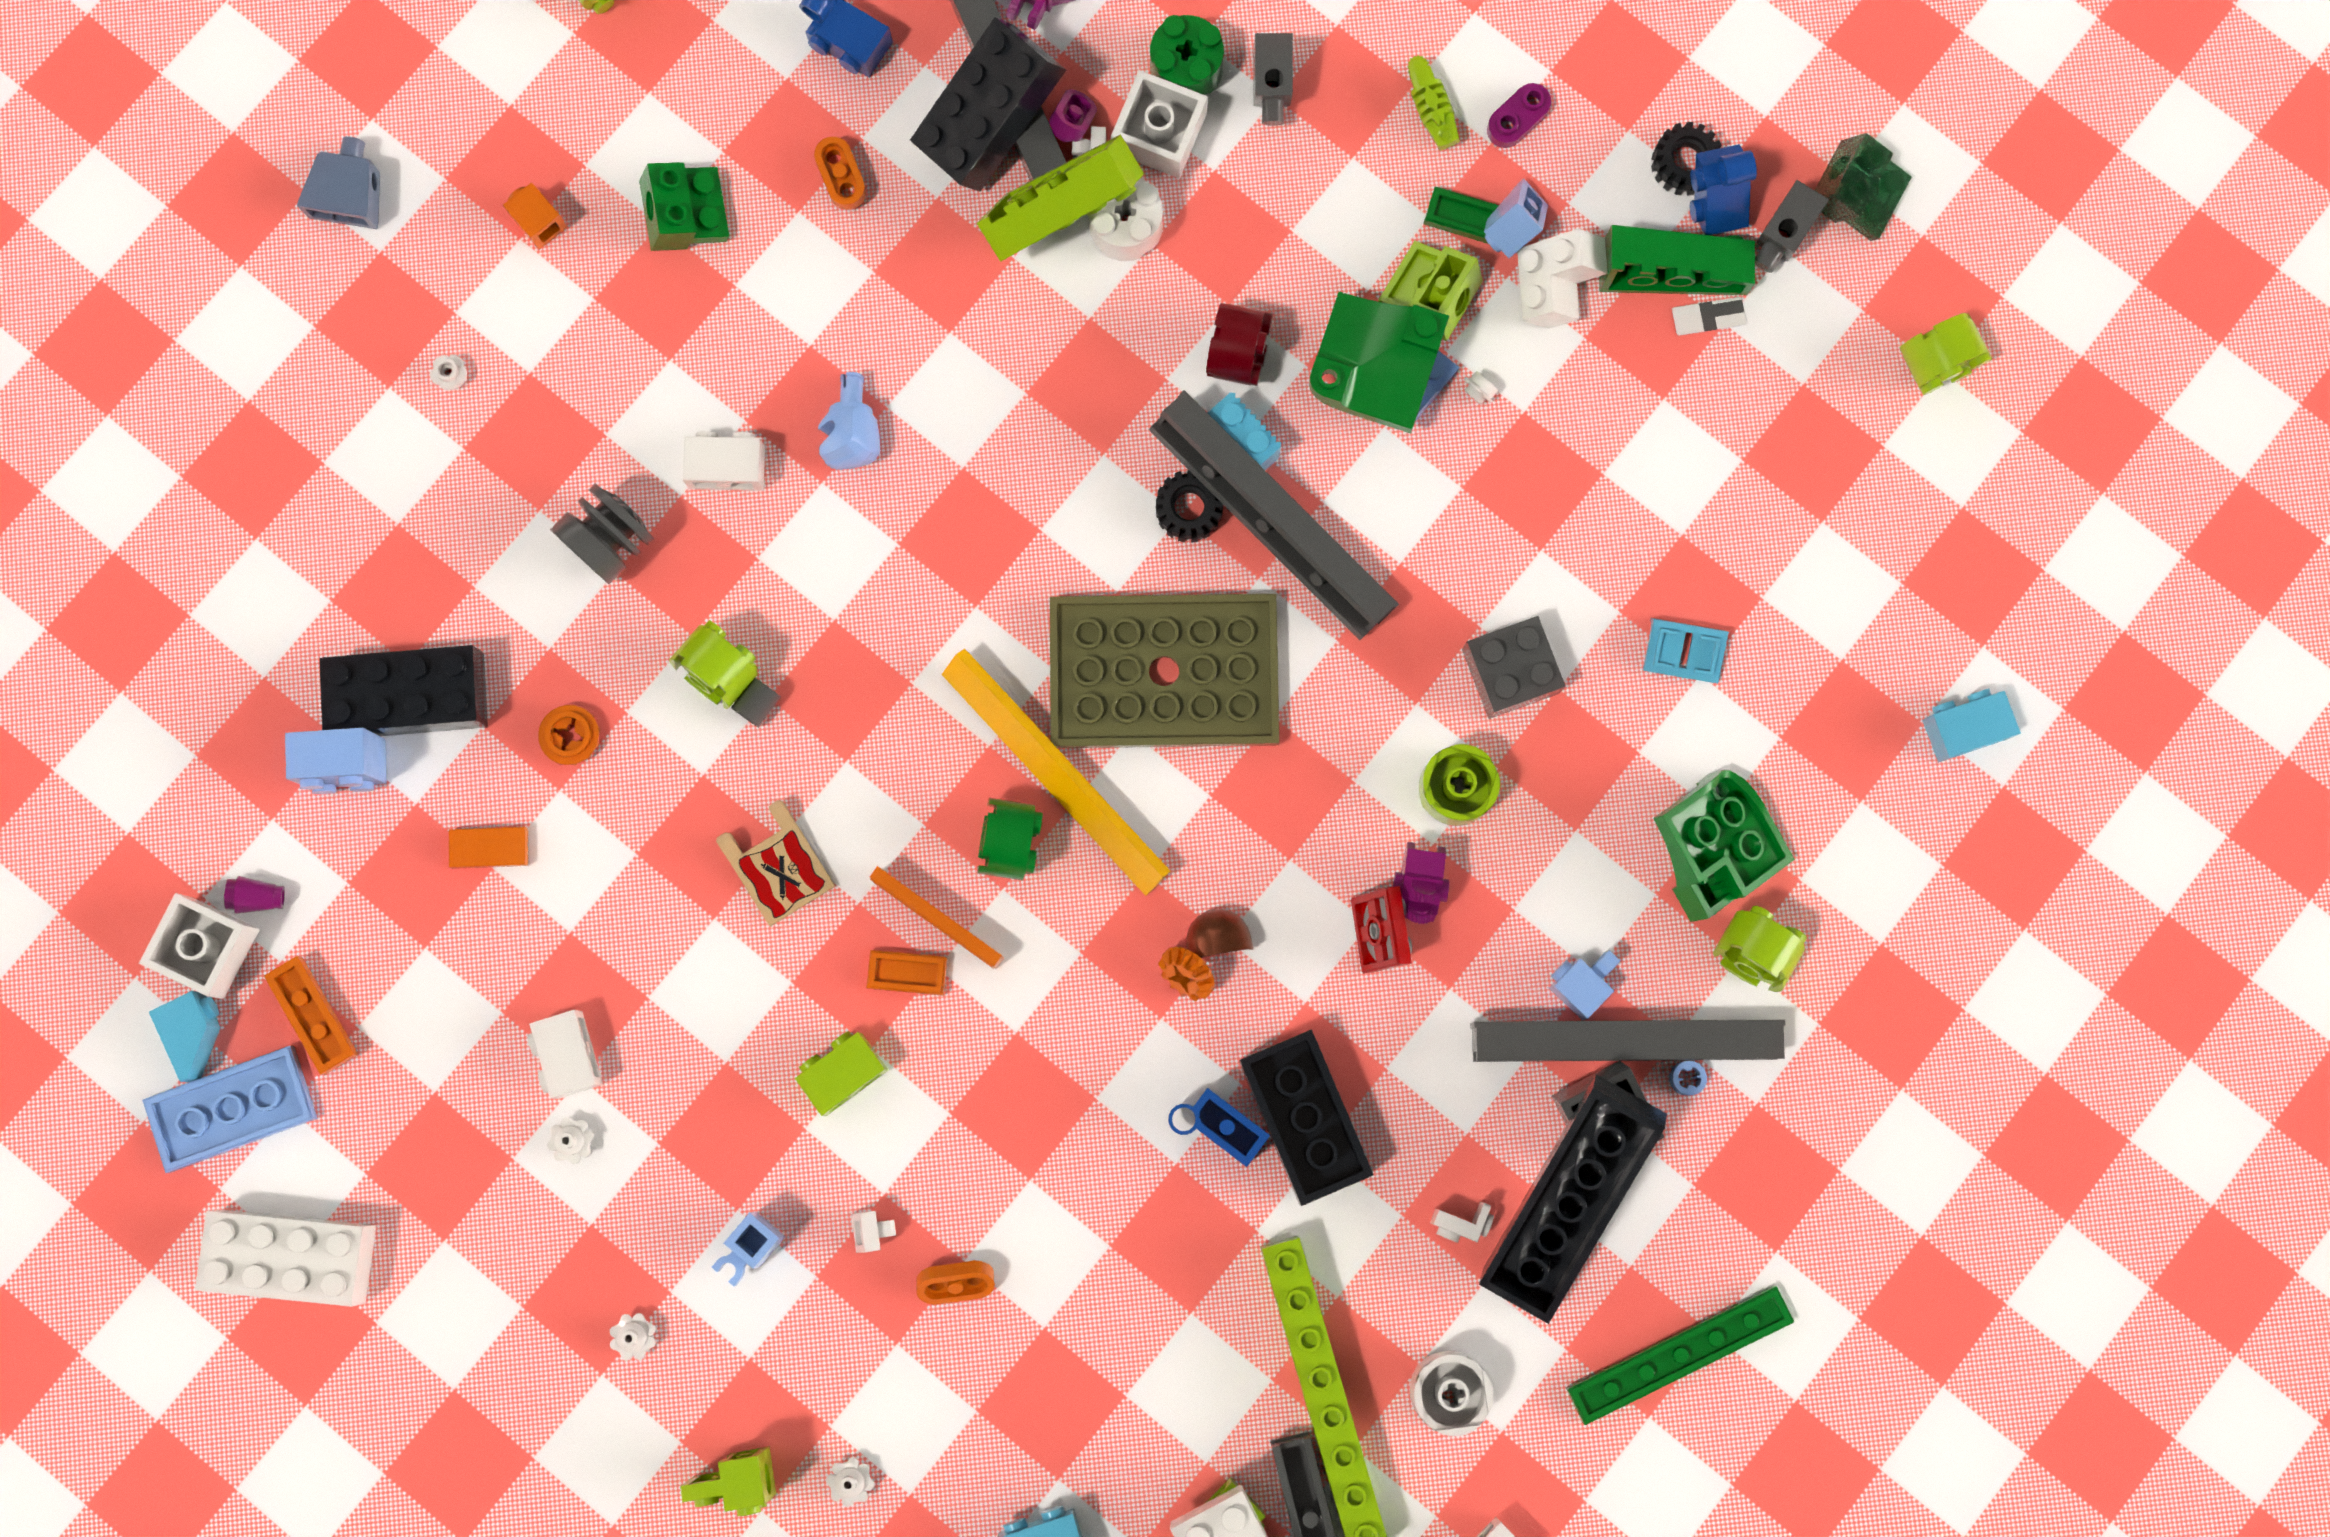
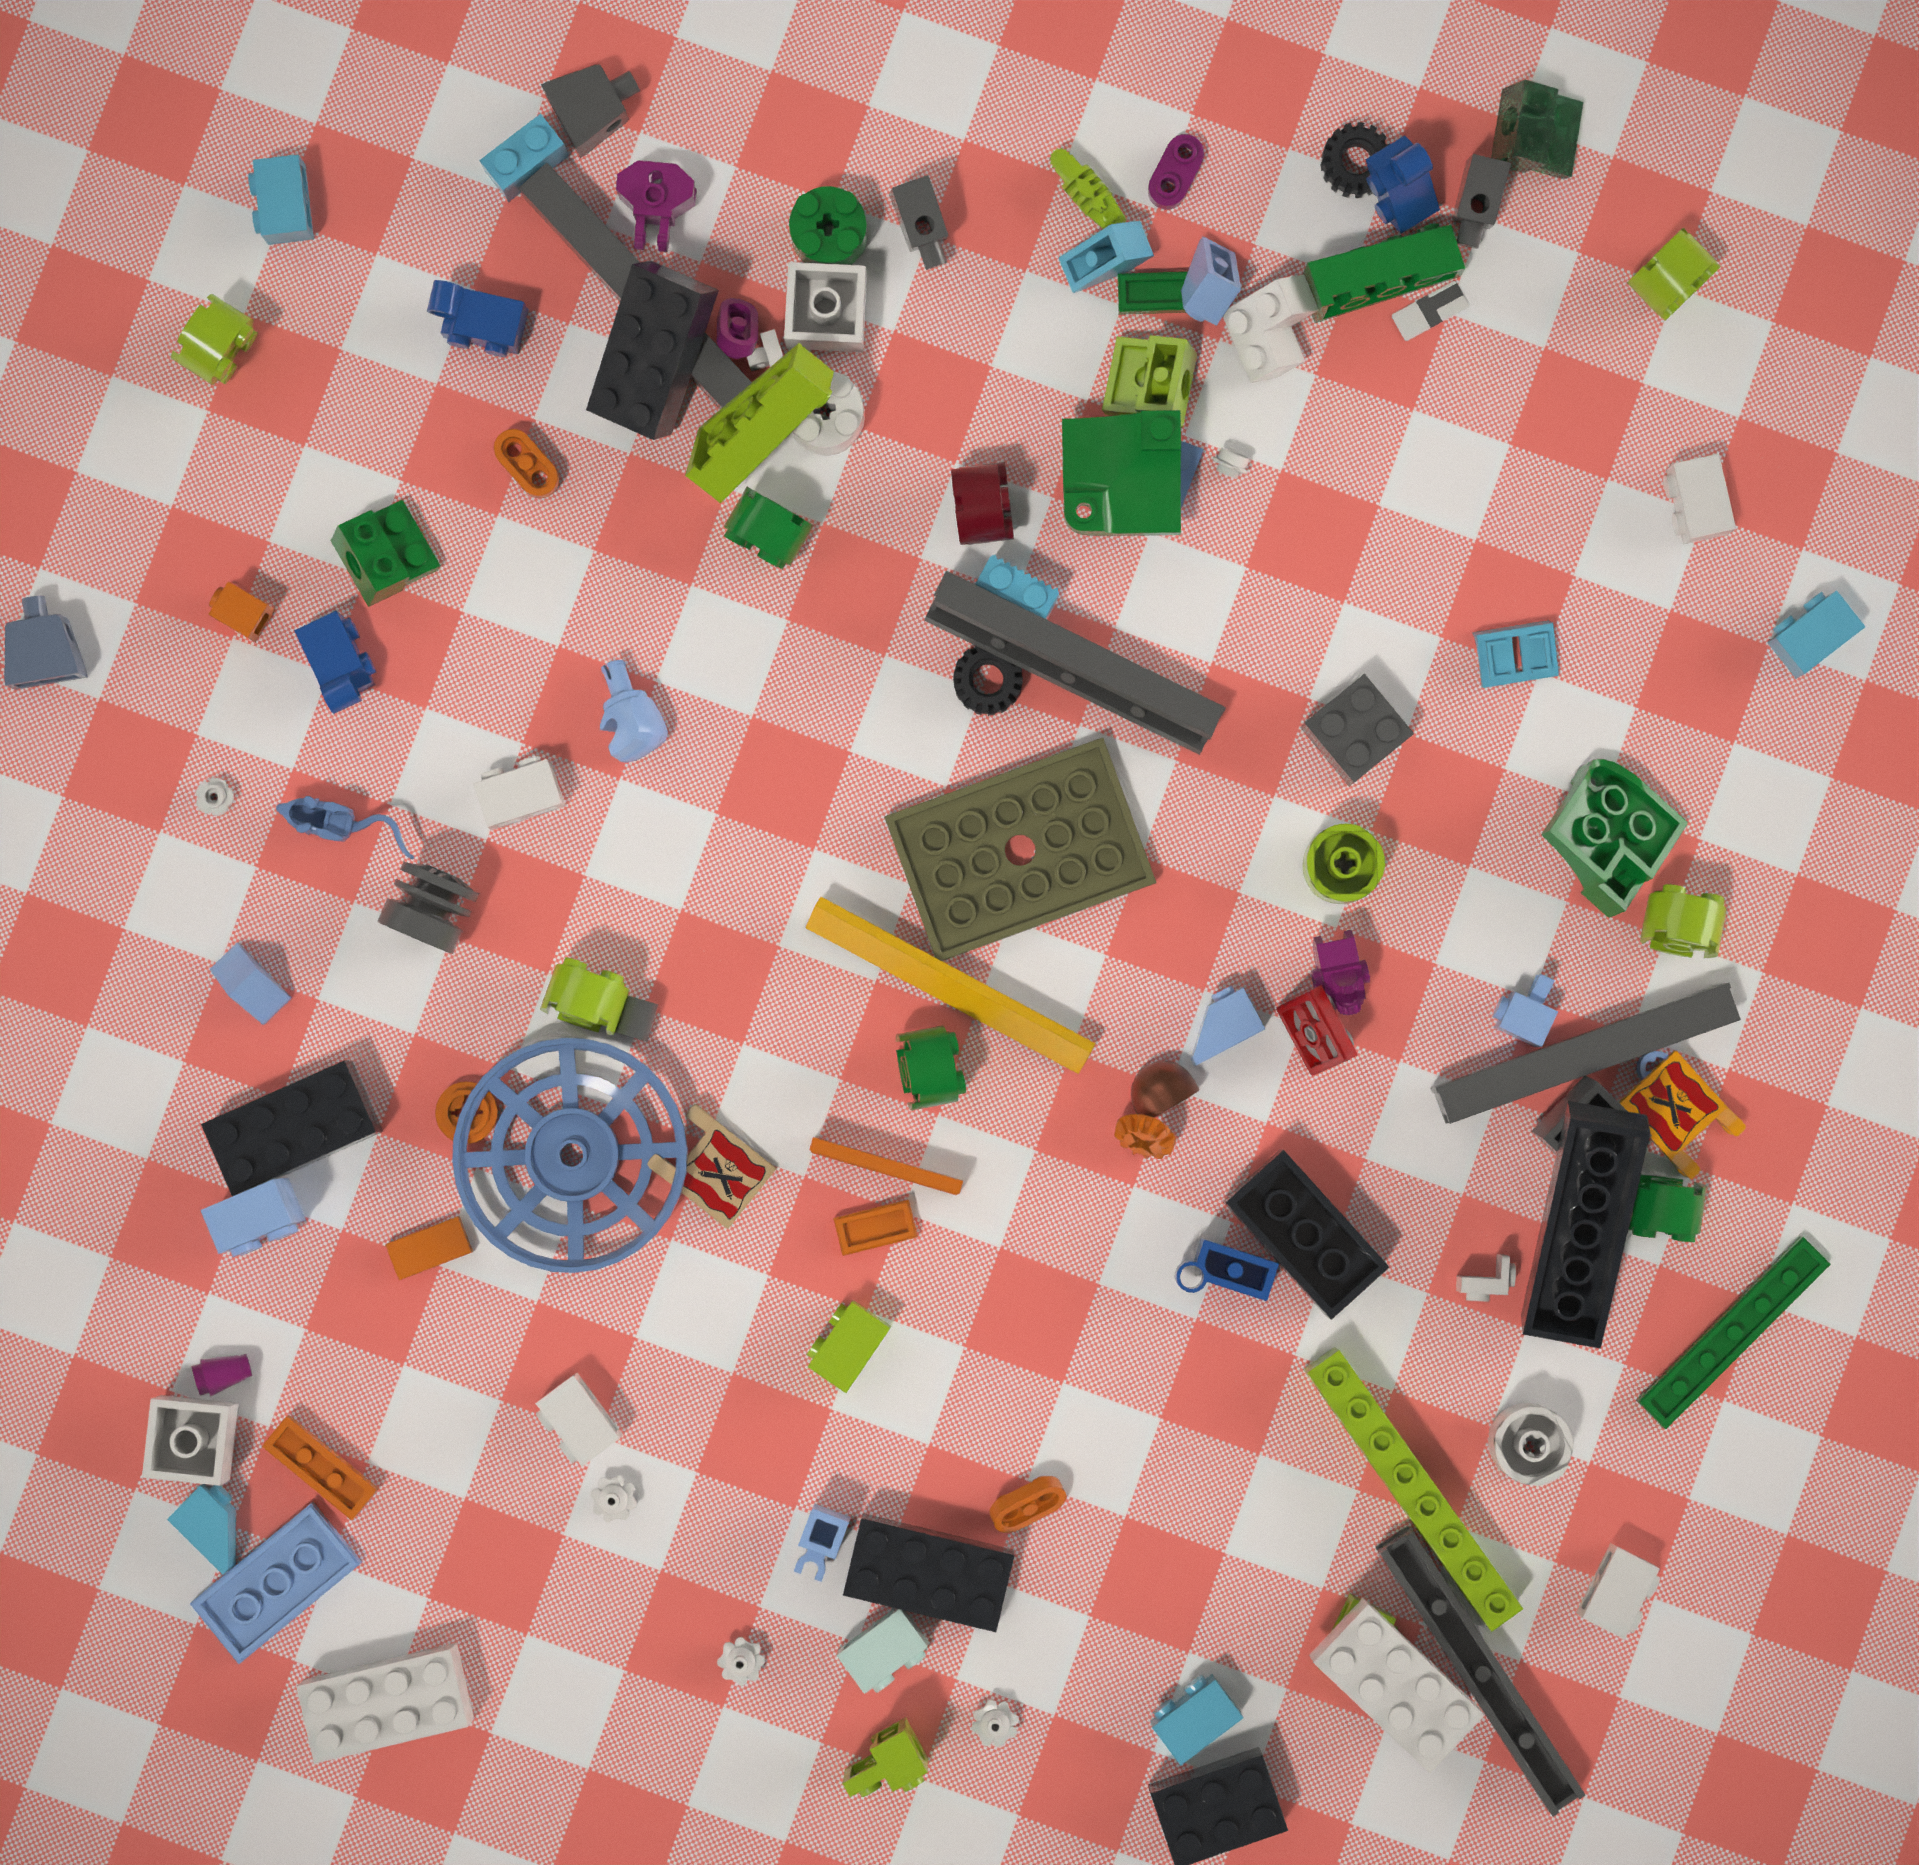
camera: 15 degrees left, 5 degrees up
(416, 551) = (249, 984): none -> light blue slope
(544, 426) = (331, 820): none -> medium blue animal
(604, 286) = (336, 660): none -> blue hinge
(625, 798) = (545, 1161): none -> medium blue dish
(769, 1373) = (883, 1650): none -> light aqua brick
(838, 1314) = (929, 1572): none -> black brick
(868, 1231) = (929, 1484): white tile -> none
(1037, 299) = (767, 526): none -> green brick
(1299, 896) = (1225, 1024): none -> light blue slope
(1431, 163) = (1106, 255): none -> medium azure slope
(1657, 1212) = (1667, 1207): none -> green brick
(1698, 1124) = (1679, 1109): none -> flag
(1902, 566) = (1699, 499): none -> white brick

